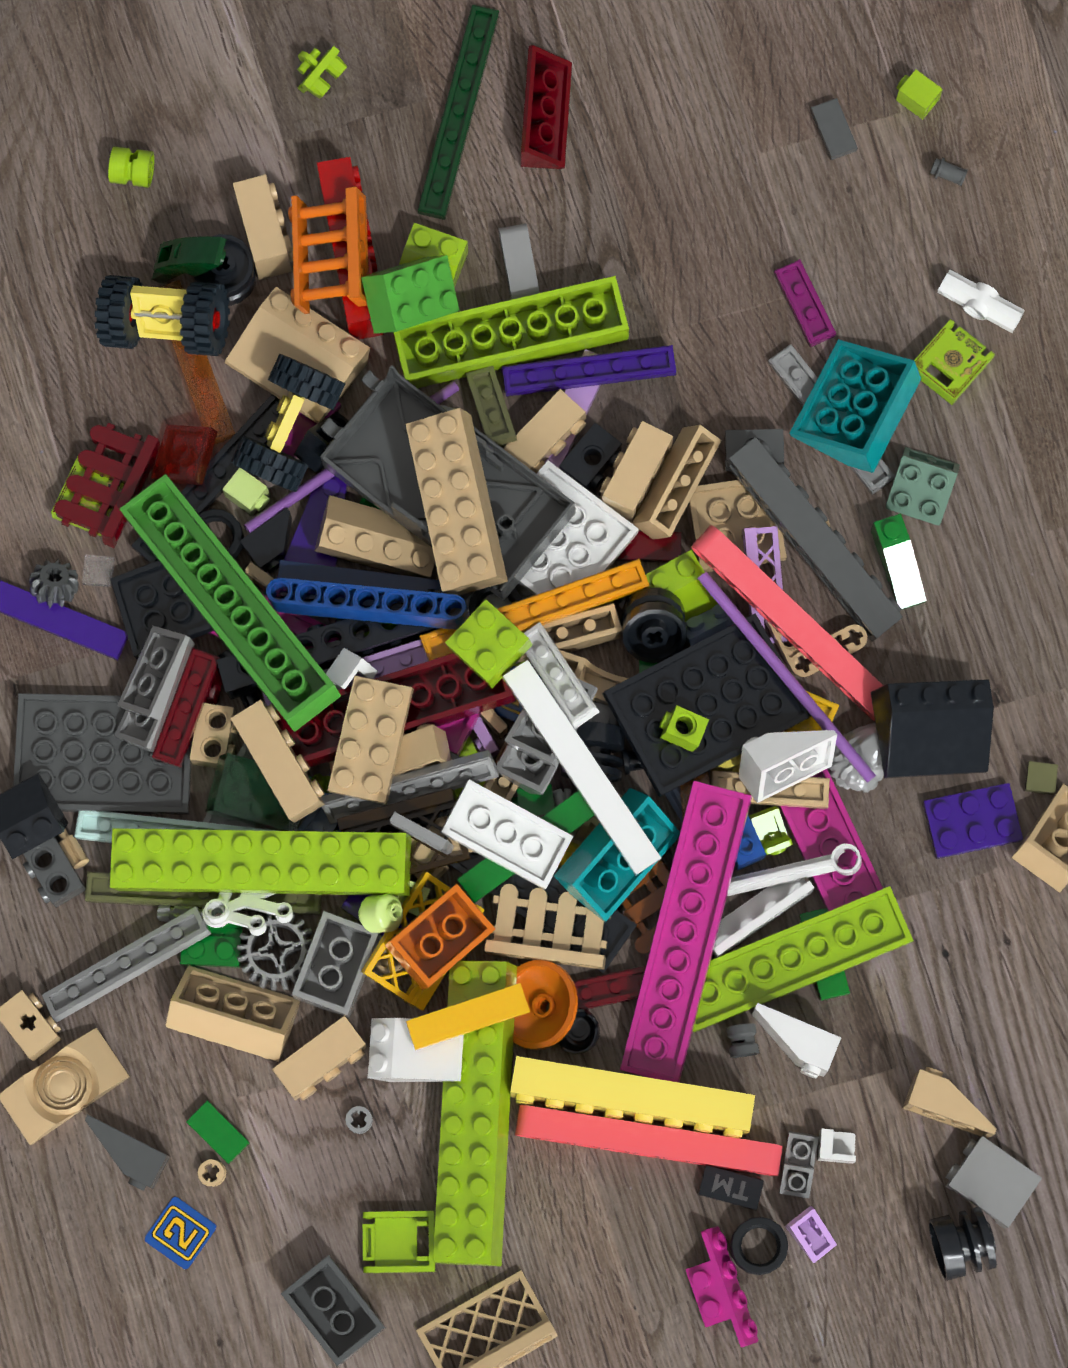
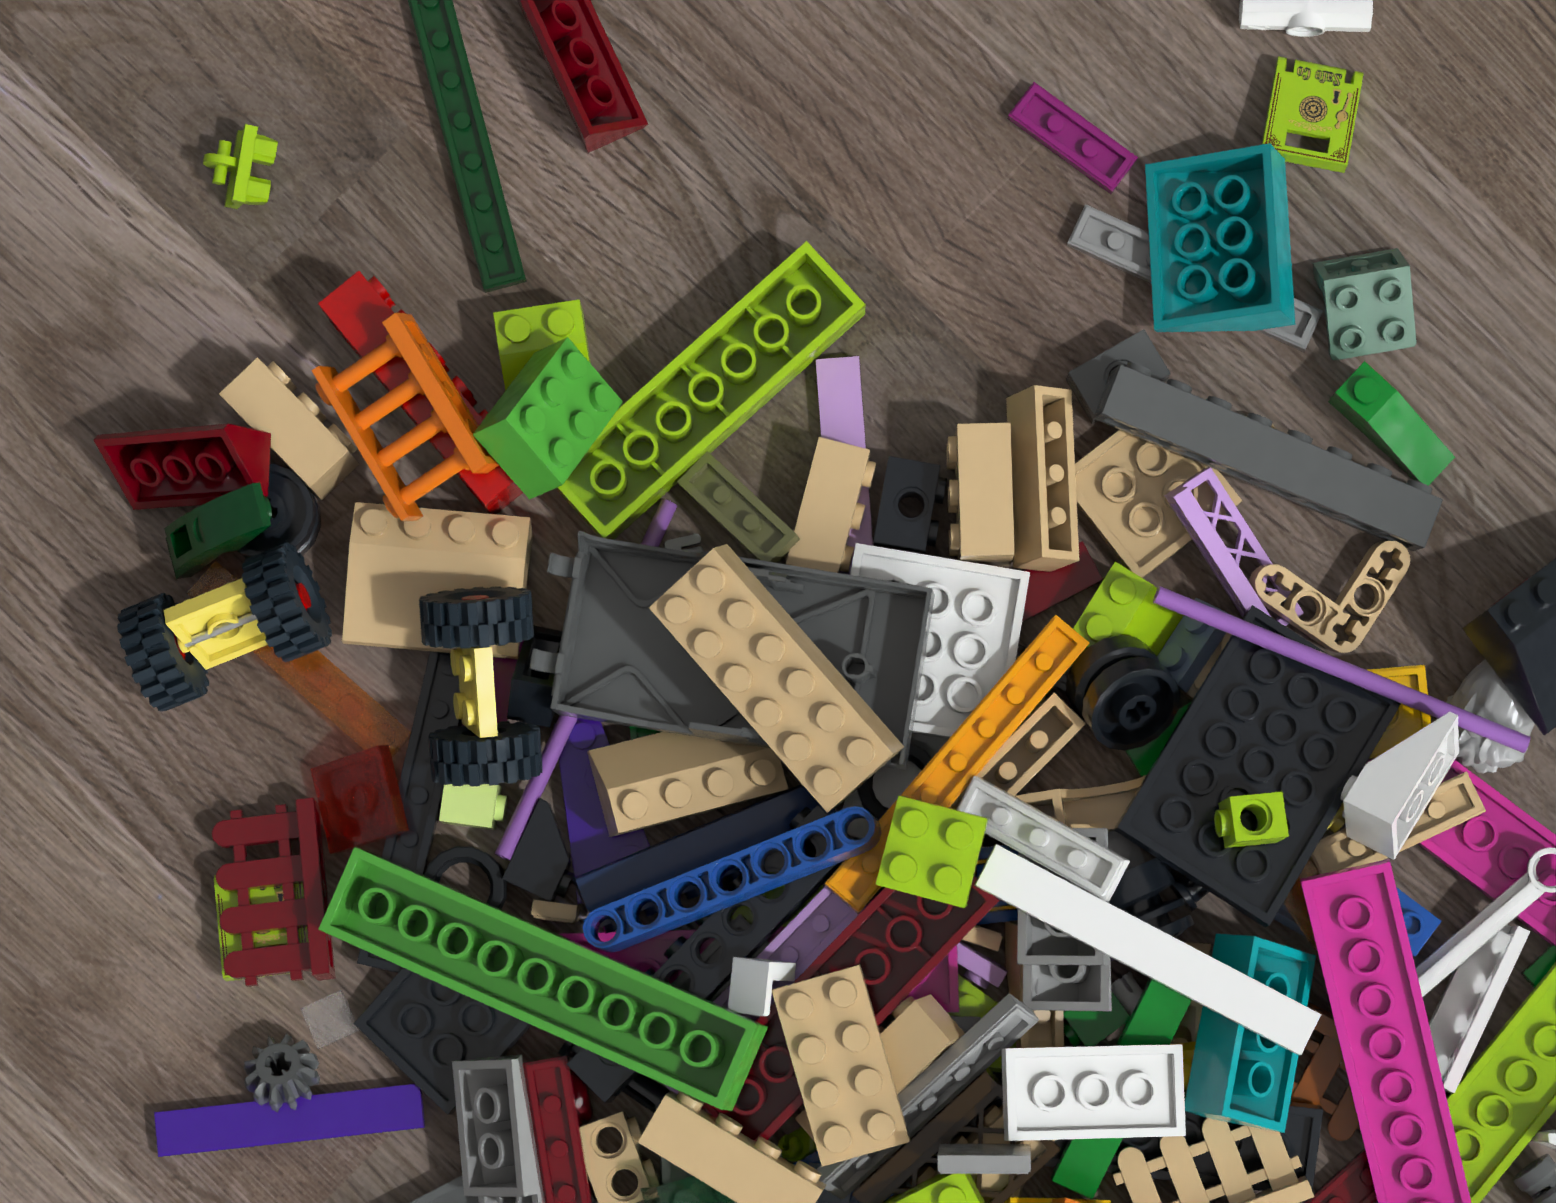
camera: 25 degrees left, 5 degrees up
(130, 166) = (61, 439): lime wheel -> none
(192, 211) = (186, 463): none -> dark red slope
(518, 261) = (662, 289): light grey beam -> none
(589, 370) = (838, 387): dark purple tile -> none
(771, 830) = (1427, 882): bracket -> none
(787, 617) = (1299, 587): coral beam -> none

